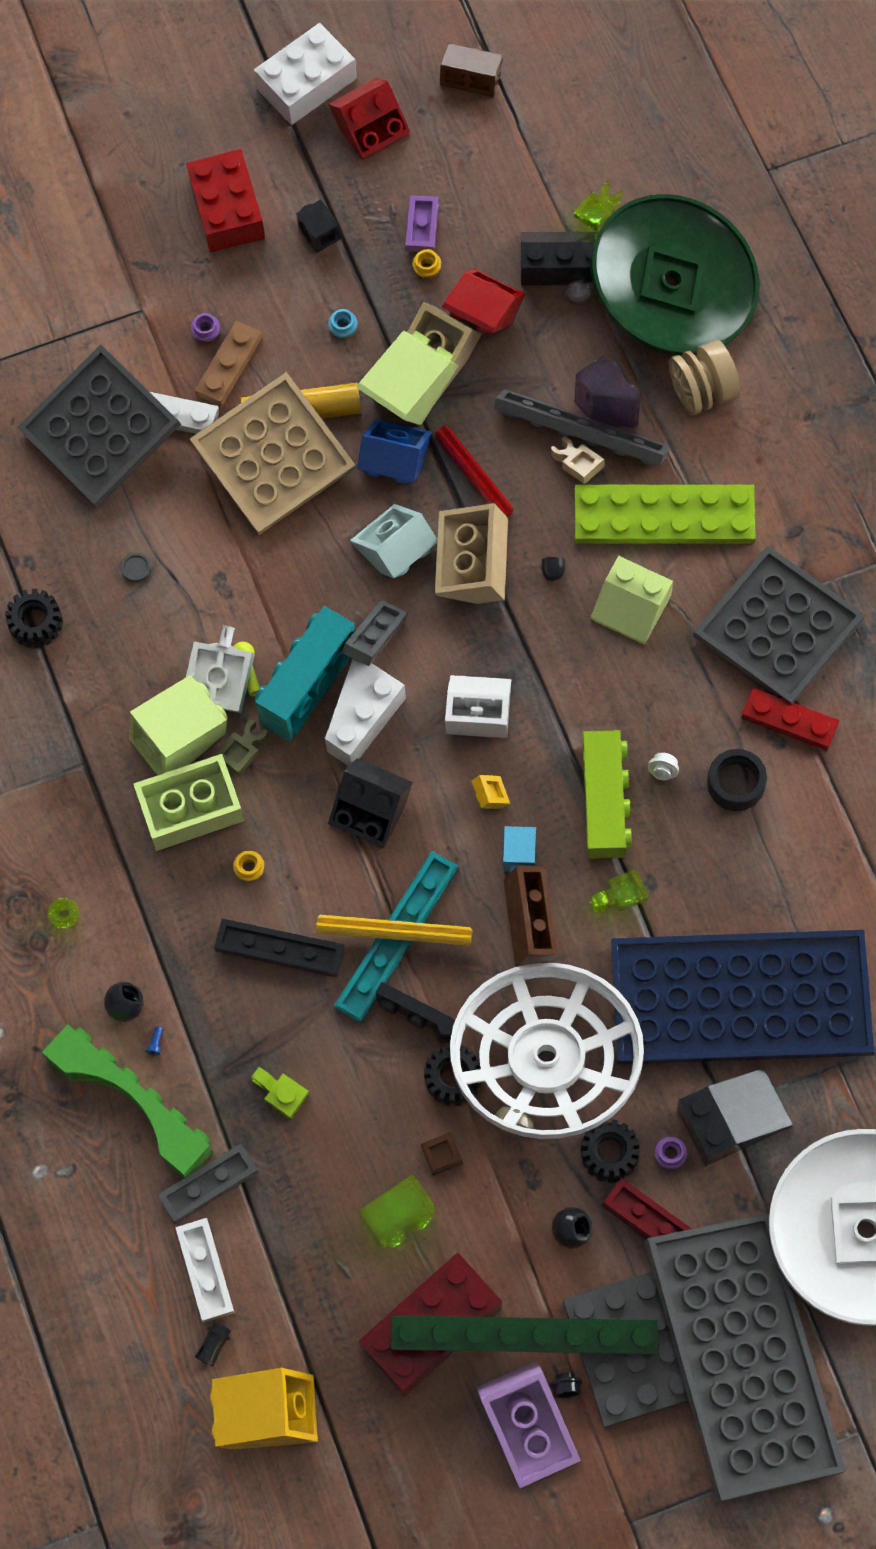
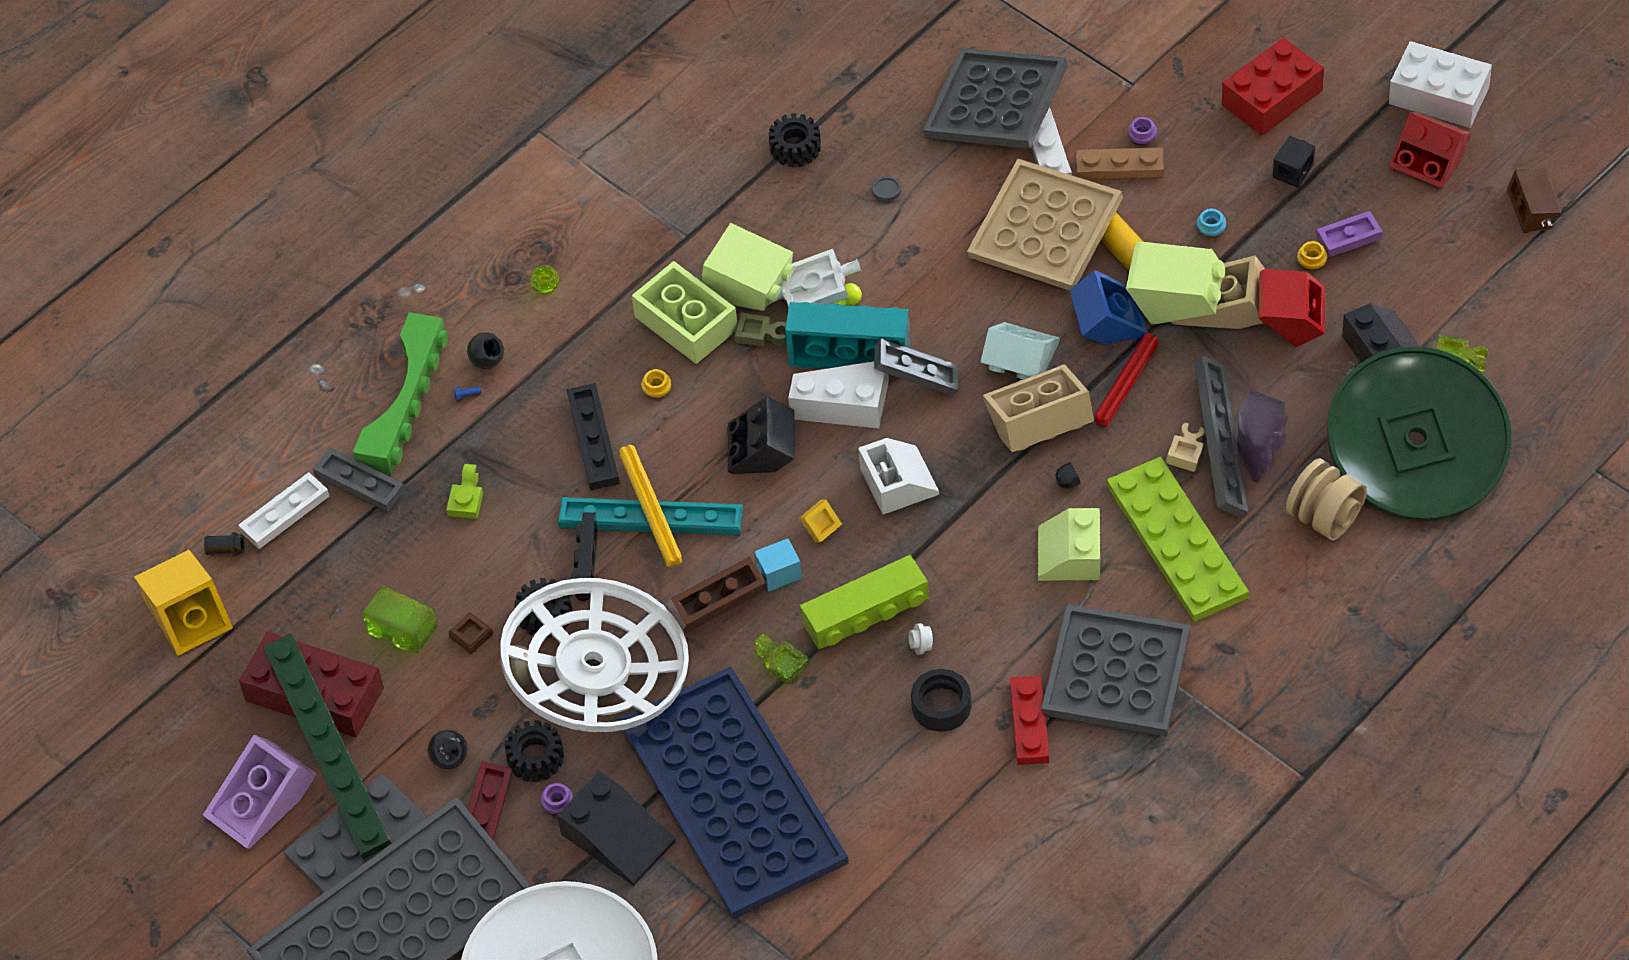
camera: 65 degrees right, 15 degrees down
(566, 1385) = (306, 808): black plate -> none

